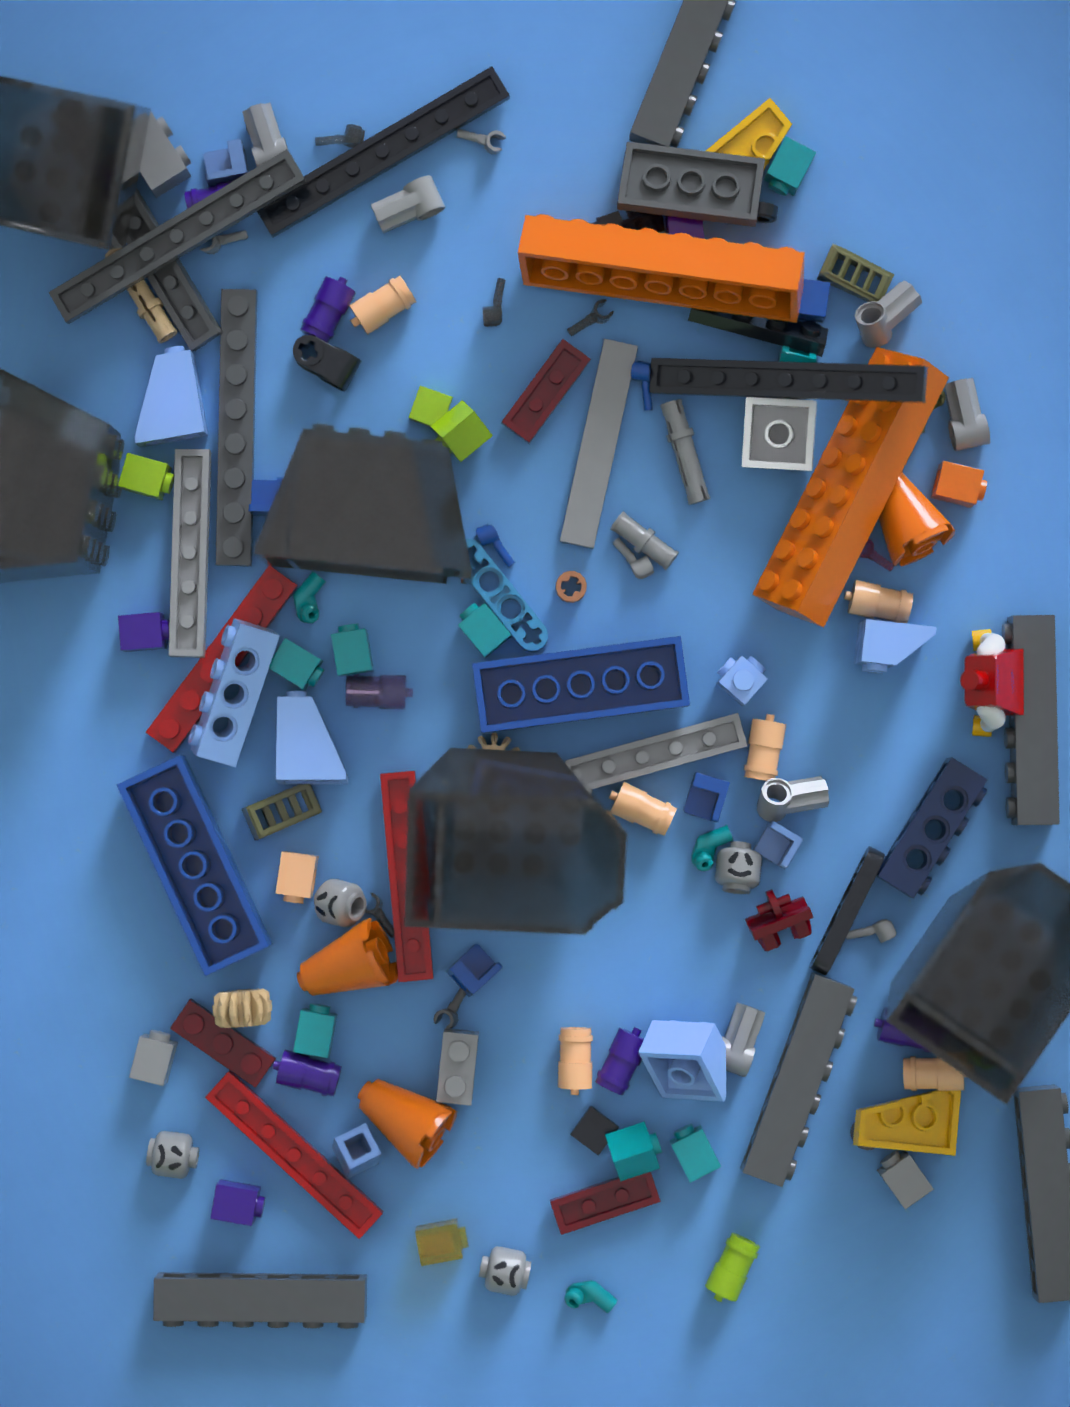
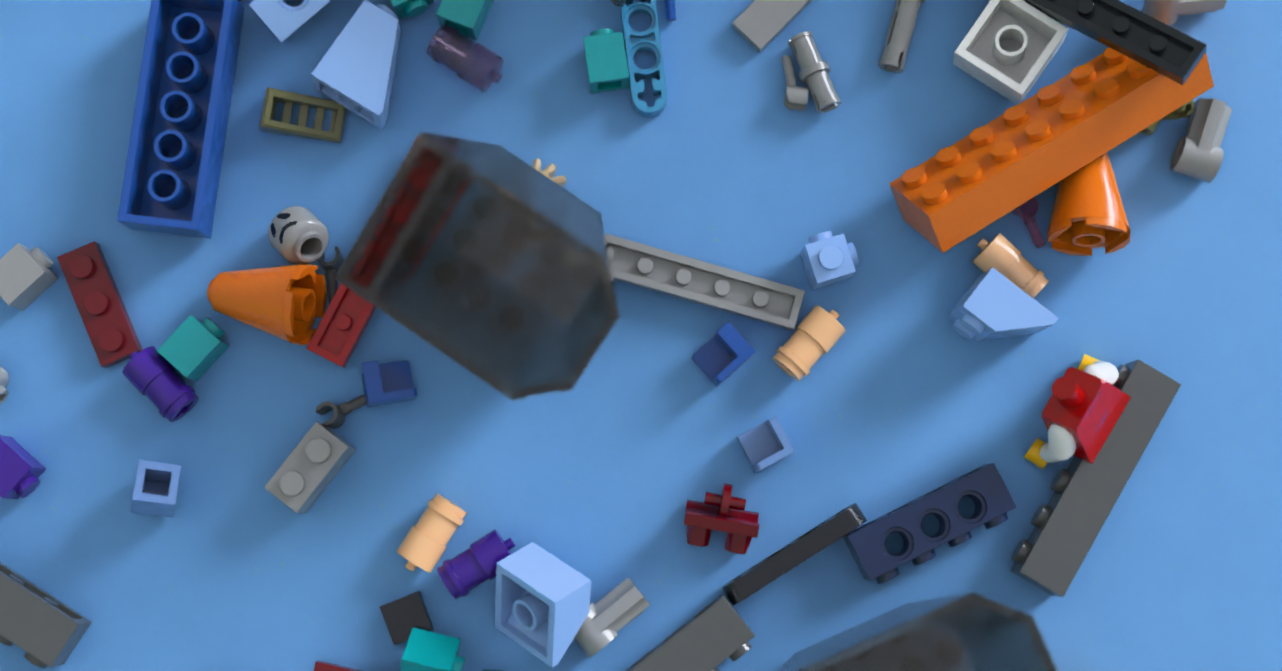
camera: 25 degrees right, 5 degrees down
(242, 1008) = (136, 278): tan gear -> none
(294, 1154) = (95, 456): red plate -> none
(296, 876) = (274, 185): light nougat brick -> none
(407, 1119) = (226, 490): orange cone -> none
(441, 1241) = (181, 634): clear yellow brick -> none
(565, 577) = (716, 61): nougat bush -> none
(581, 684) = (665, 167): blue brick -> none
(639, 807) = (652, 327): light nougat piece -> none
(706, 846) = (693, 403): teal arm -> none
(738, 868) = (711, 444): light grey head -> none
(793, 797) = (798, 400): light grey piece -> none
(884, 930) = (819, 595): light grey hand -> none
(959, 484) = (1157, 203): orange brick -> none

